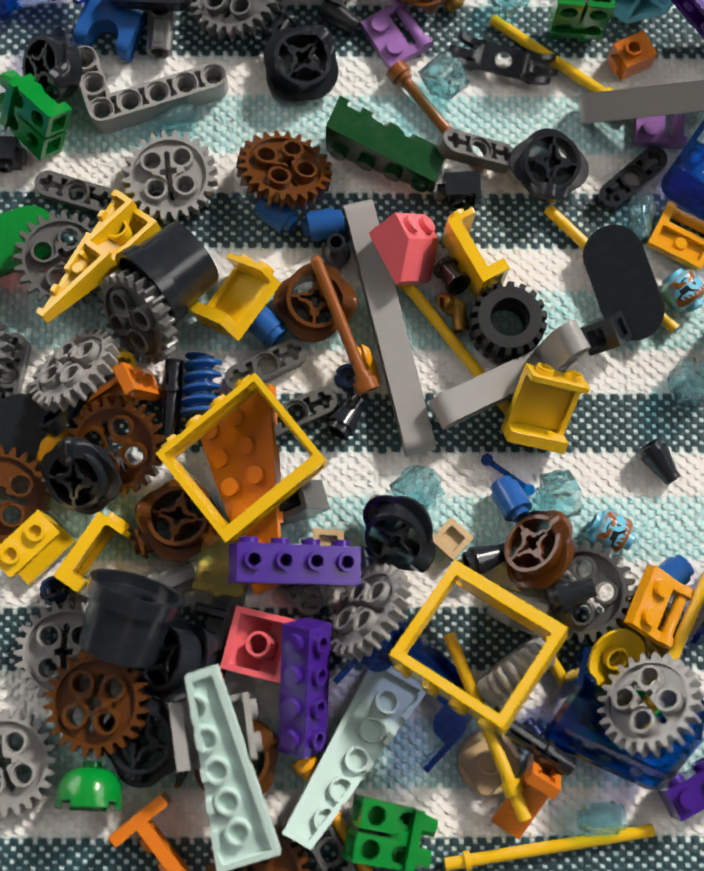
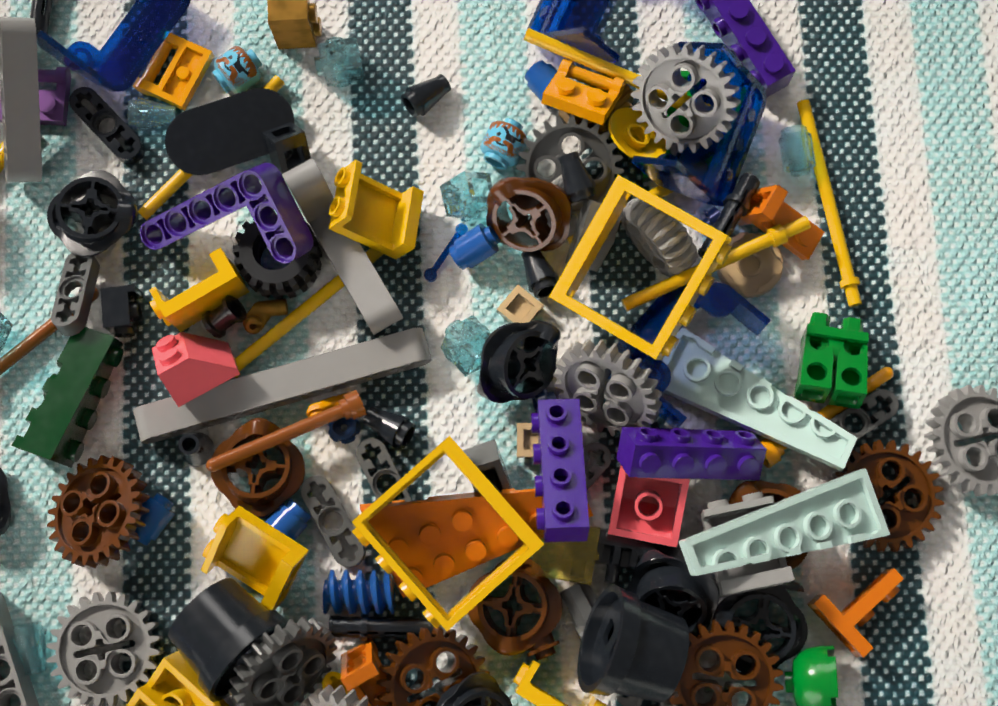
camera: 85 degrees left, 0 degrees up
(323, 223) = (163, 464): blue brick -> none
(555, 303) = (221, 202): none -> dark purple beam

